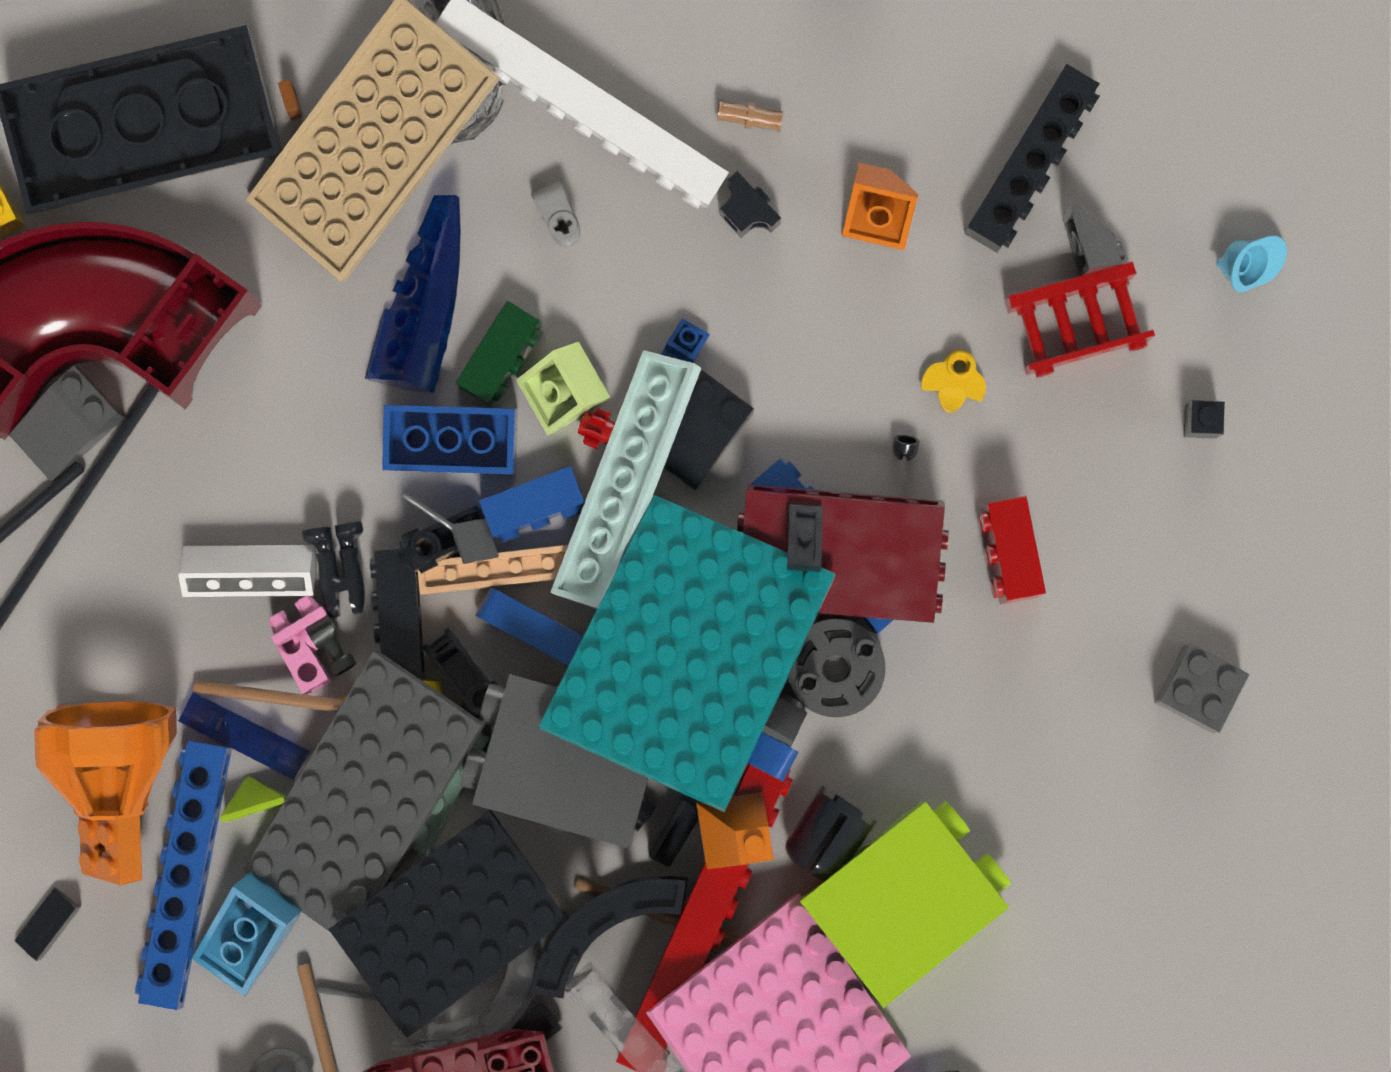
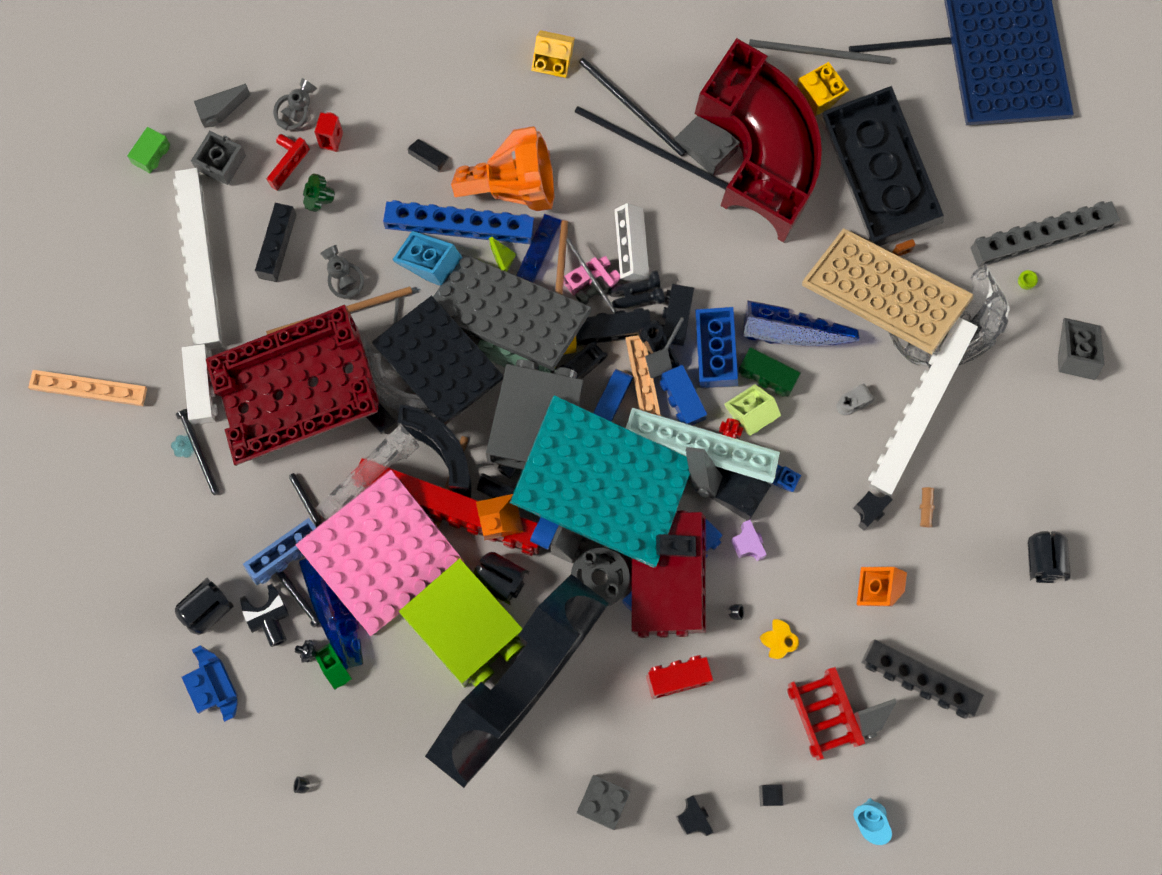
camera: 80 degrees right, 10 degrees down
(306, 646) = (591, 275): none -> dark grey piece
(380, 501) = (679, 306): none -> black brick
(676, 481) = (703, 472): none -> dark grey slope
(791, 416) = (749, 542): none -> lavender brick
(1073, 856) = (492, 715): none -> black piece
(1233, 545) = (694, 818): none -> black brick

